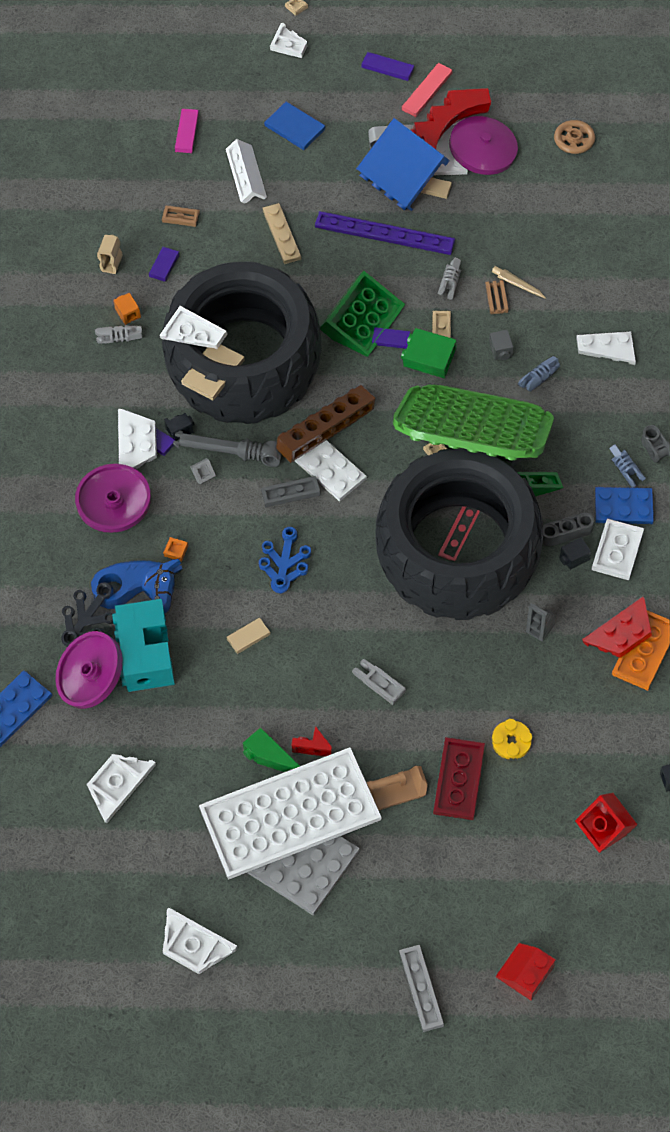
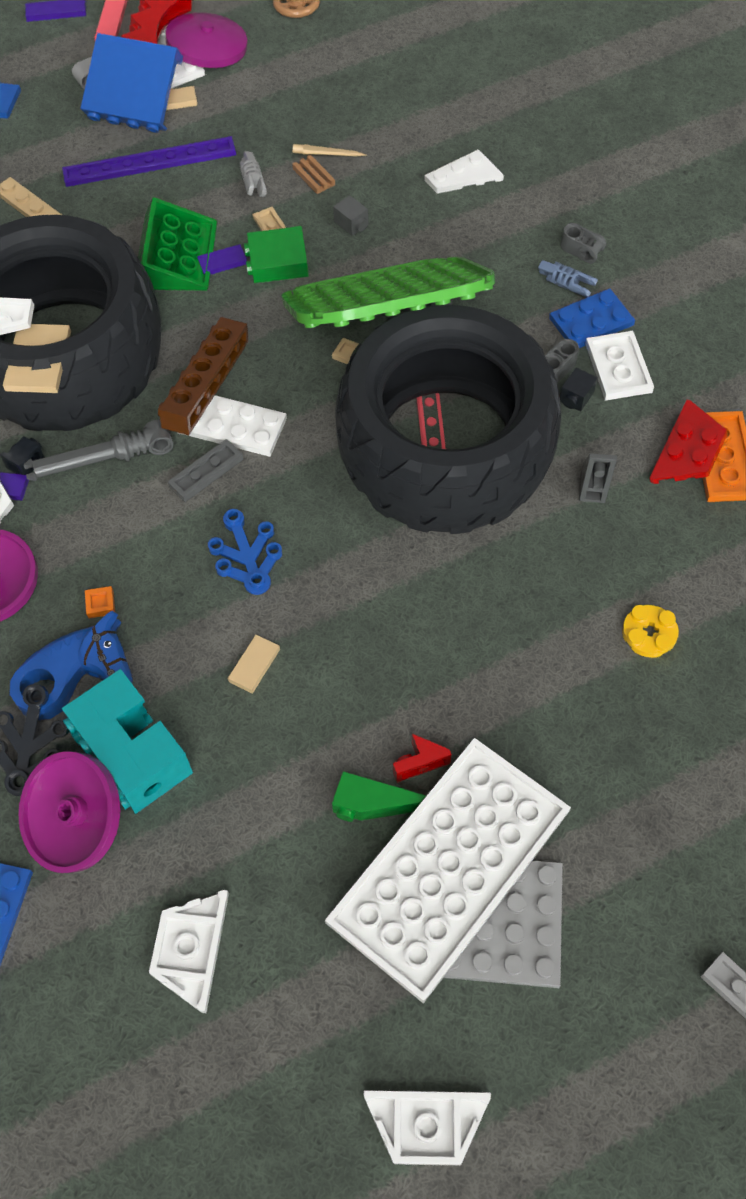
camera: 30 degrees left, 0 degrees up
(203, 471) = (82, 494): light grey plate -> none
(380, 682) = (451, 639): light grey hinge -> none
(398, 788) = (560, 756): medium nougat piece -> none
(459, 778) = (624, 709): dark red plate -> none
(539, 374) = (411, 227): sand blue hinge -> none

